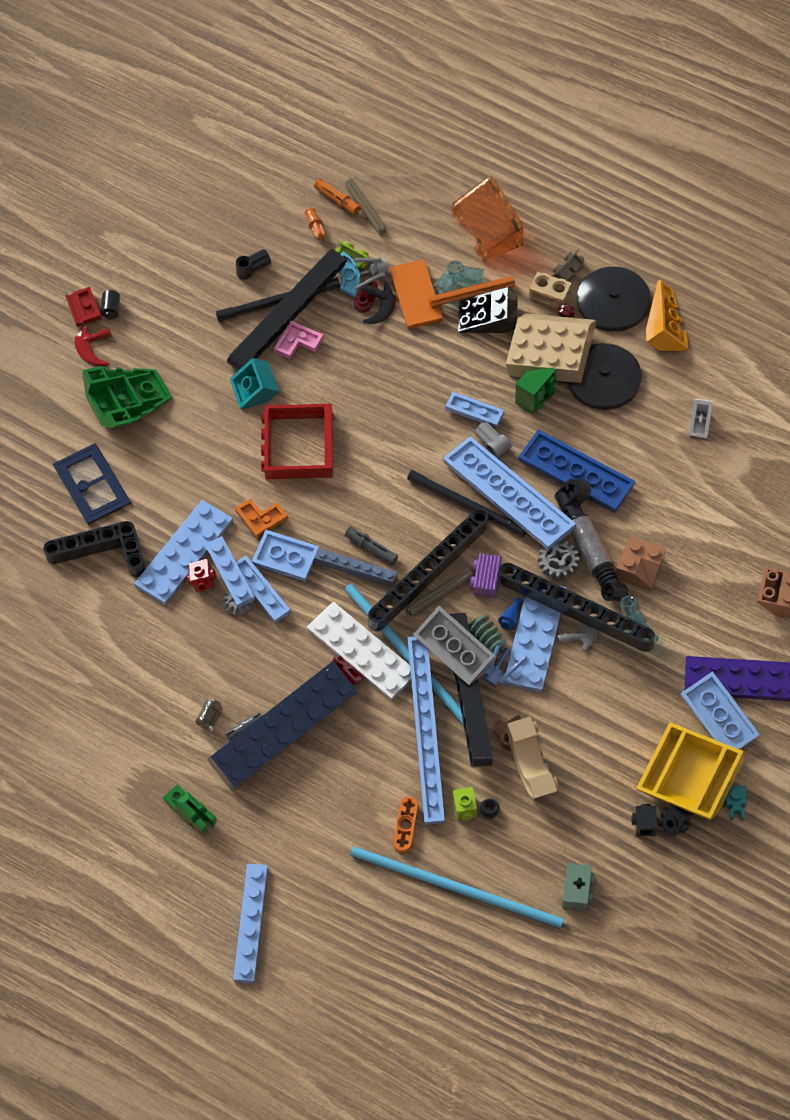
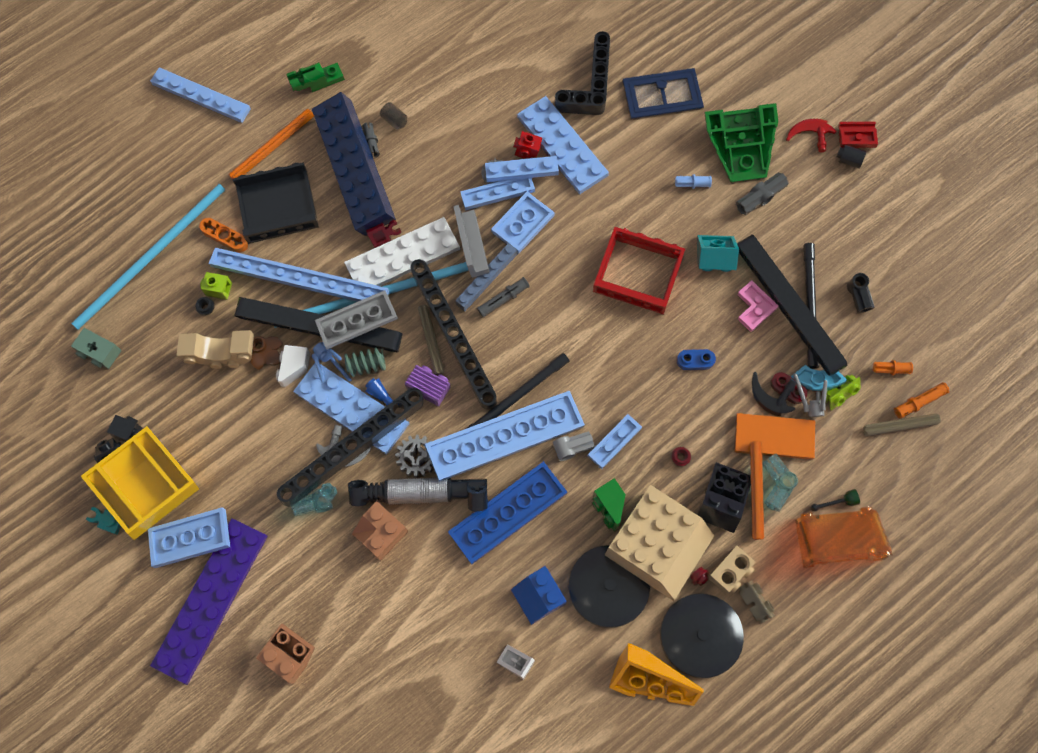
camera: 110 degrees right, 10 degrees up
(177, 365) = (762, 193): none -> dark grey piece
(185, 425) = (693, 181): none -> light blue axle
(260, 521) = (568, 210): orange plate -> none
(285, 823) = (272, 144): none -> orange axle
(326, 588) = (471, 242): none -> light grey fence
(352, 788) = (276, 202): none -> black panel
(368, 371) = (696, 359): none -> blue plate
(448, 225) = (850, 498): none -> hinge
(465, 352) = (685, 452): none -> dark red plate
(517, 698) = (293, 364): none -> white slope
(637, 421) = (538, 595): none -> blue slope

